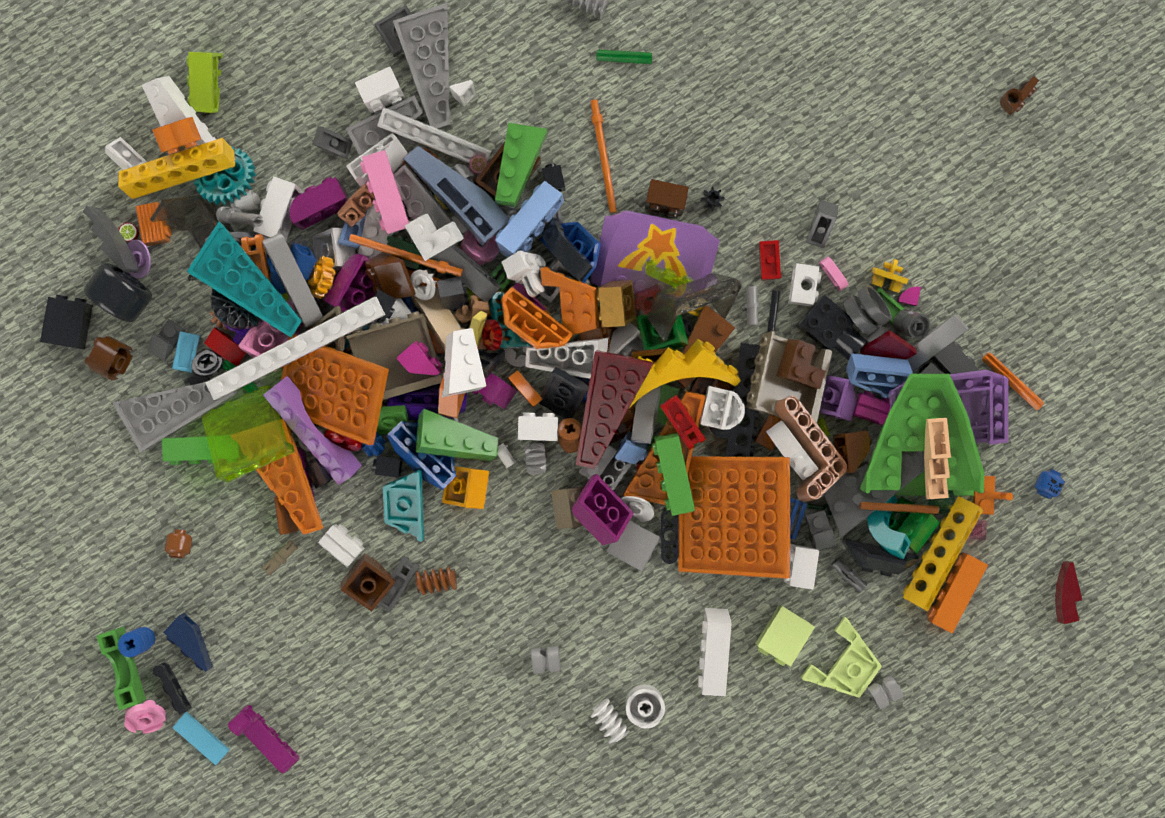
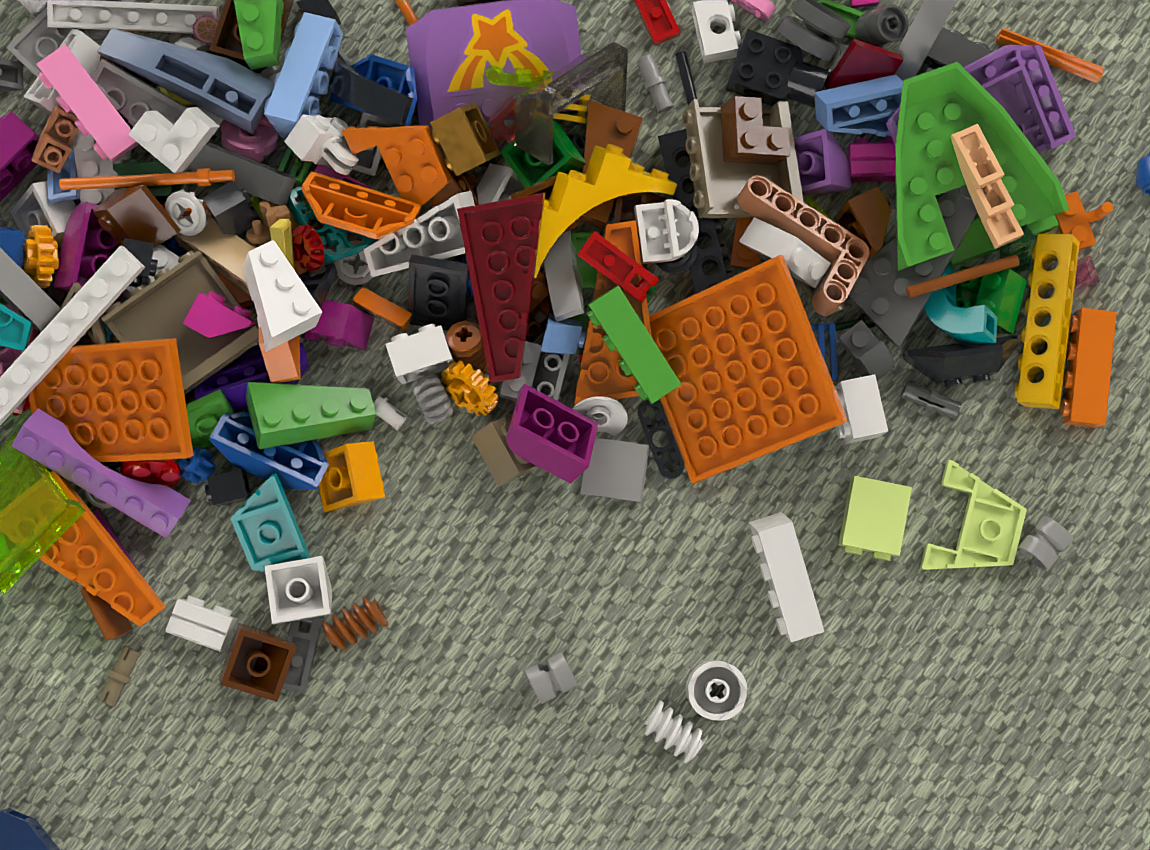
camera: 25 degrees left, 5 degrees down
(318, 474) = (133, 534): black brick -> none
(409, 548) = (298, 590): none -> white slope
(561, 461) = (469, 388): none -> light orange gear

